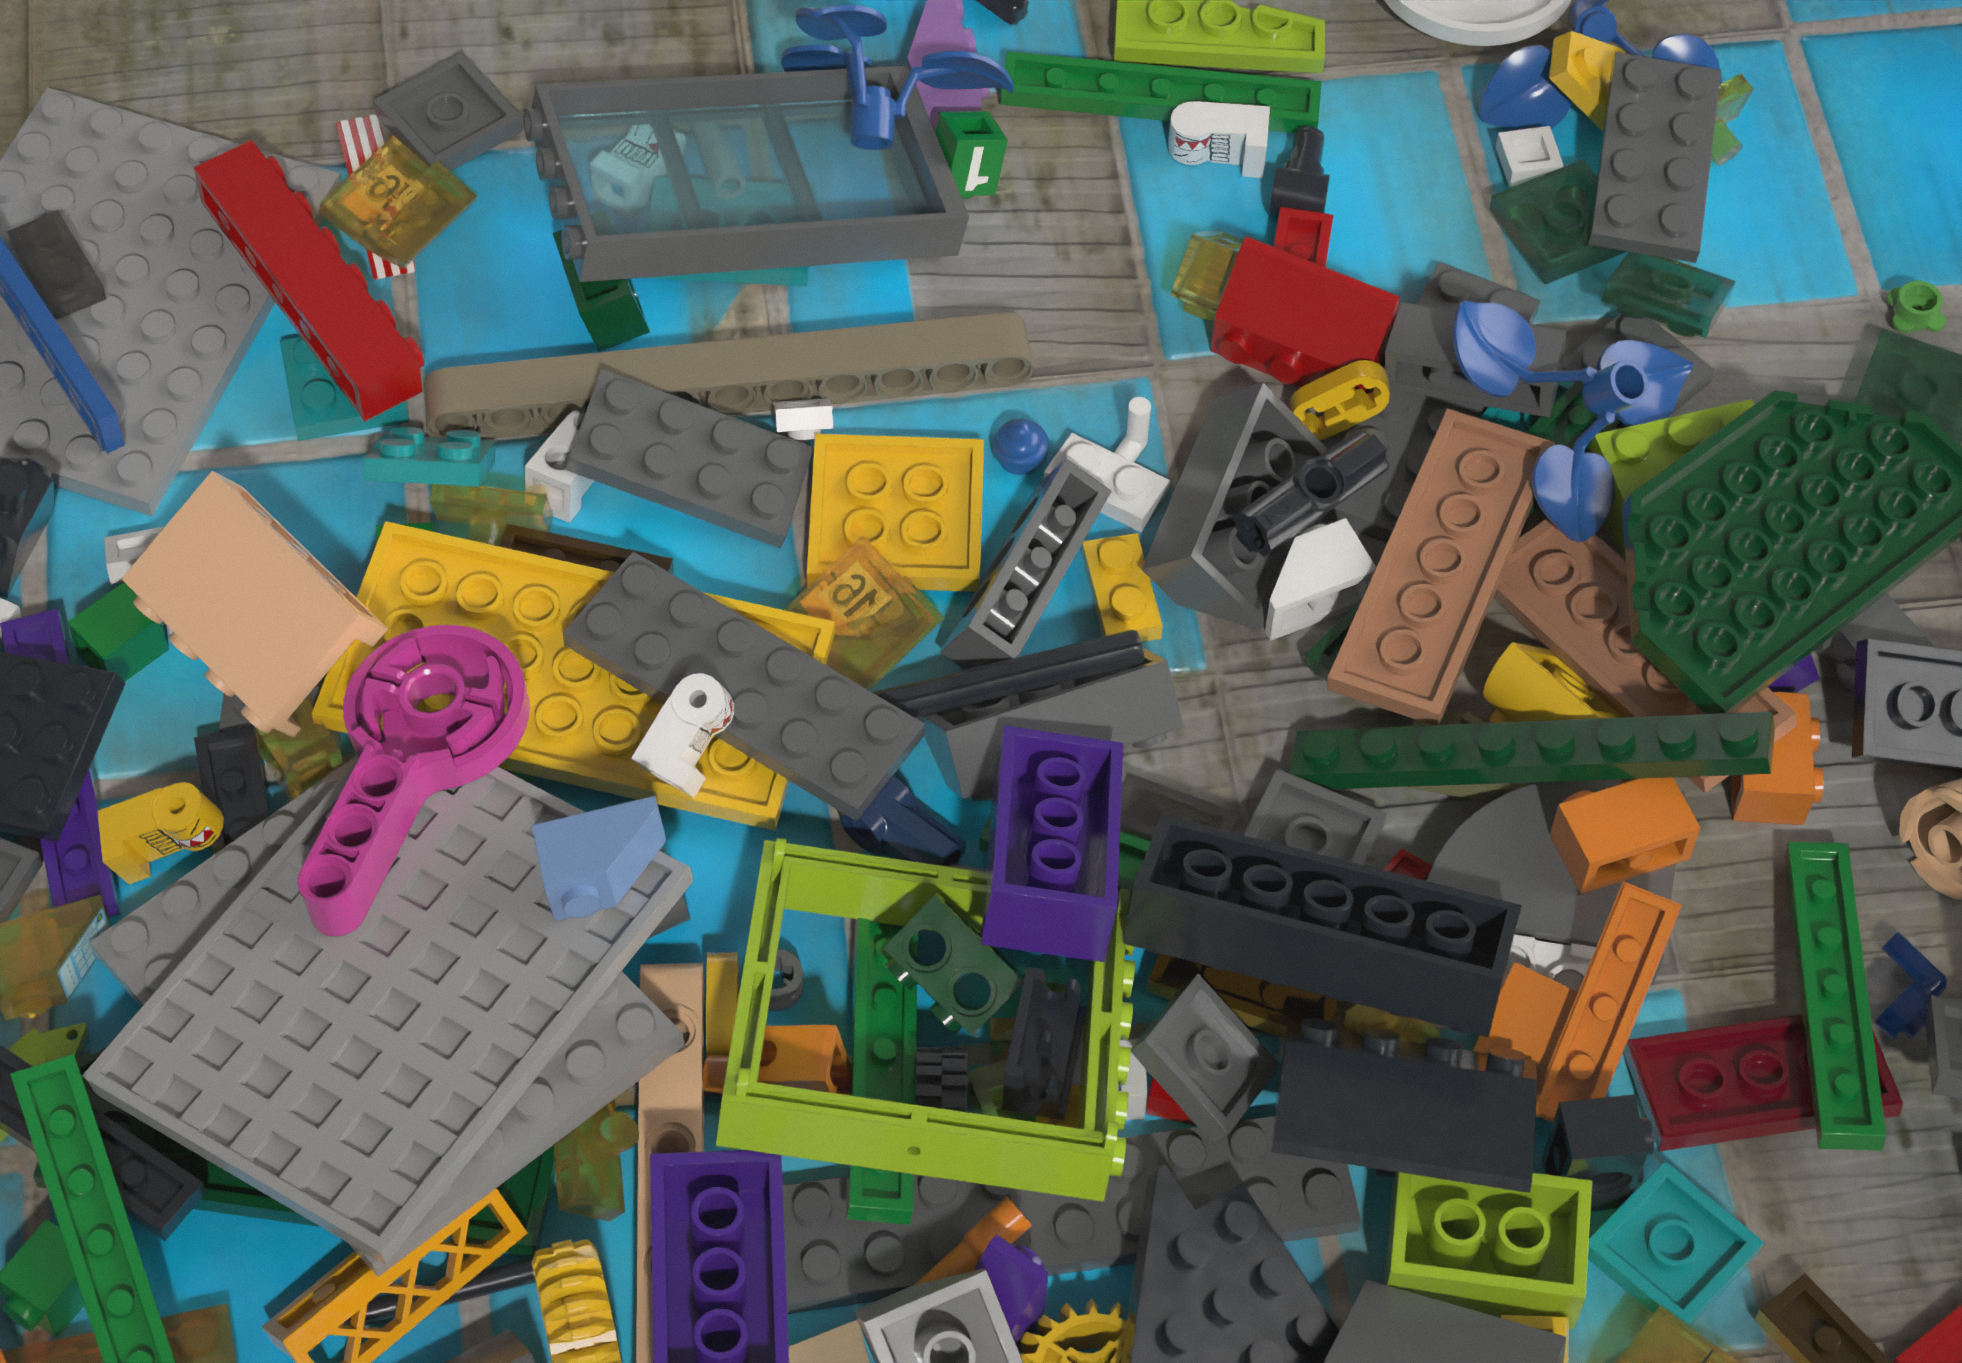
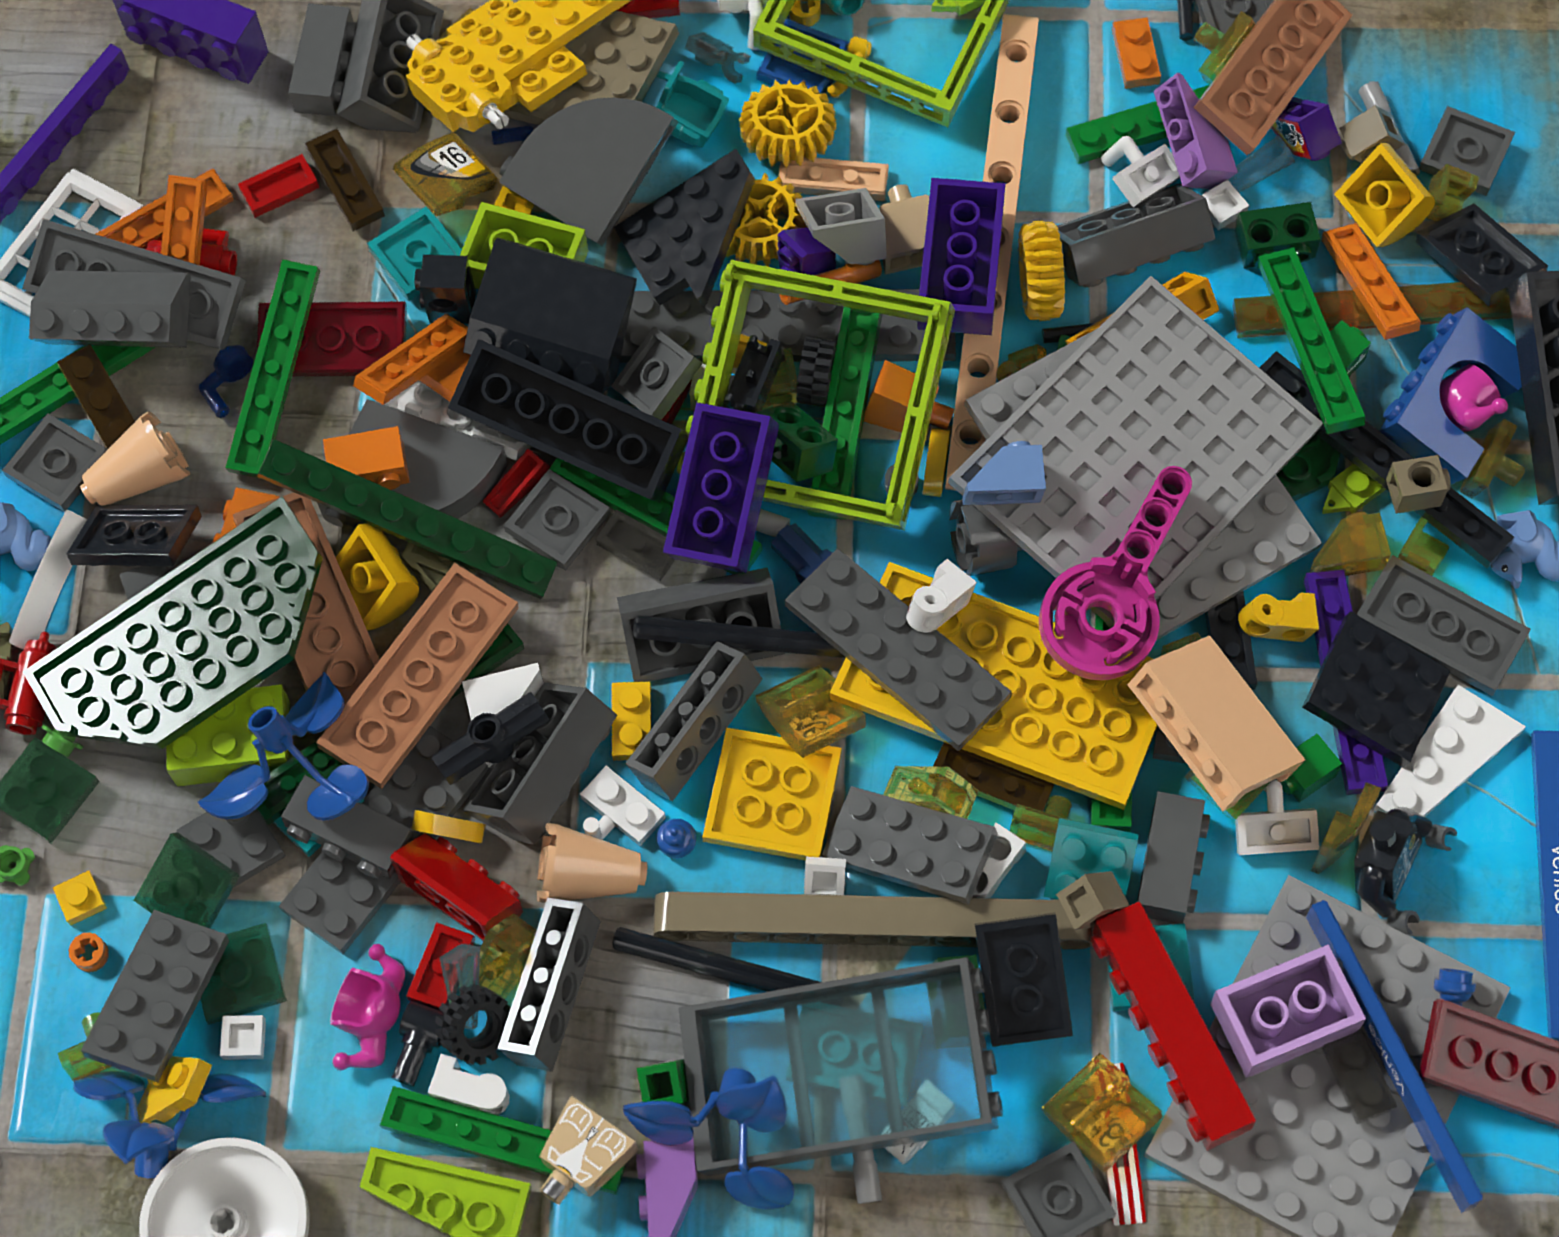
camera: 165 degrees left, 10 degrees up
(63, 537) = (1345, 829): none -> clear yellow slope
(151, 296) = (1287, 1011): none -> lavender brick
(321, 484) = (1172, 857): none -> dark grey brick
(422, 384) = (1092, 899): none -> dark tan brick
(513, 316) = (1023, 979): none -> black plate
(670, 524) = (932, 788): none -> clear yellow slope
(904, 306) = (705, 961): none -> black axle
(1054, 62) = (583, 1152): none -> tan torso
(1145, 362) = (586, 867): none -> light nougat cone
(1147, 241) = (549, 984): none -> dark grey brick
(1231, 181) = (457, 1015): none -> black tyre
(1264, 225) = (461, 969): none -> clear light blue piece
(1379, 197) = (368, 1009): none -> dark pink piece
(1767, 242) = (99, 956): none -> orange bush
(1809, 286) = (79, 897): none -> yellow plate

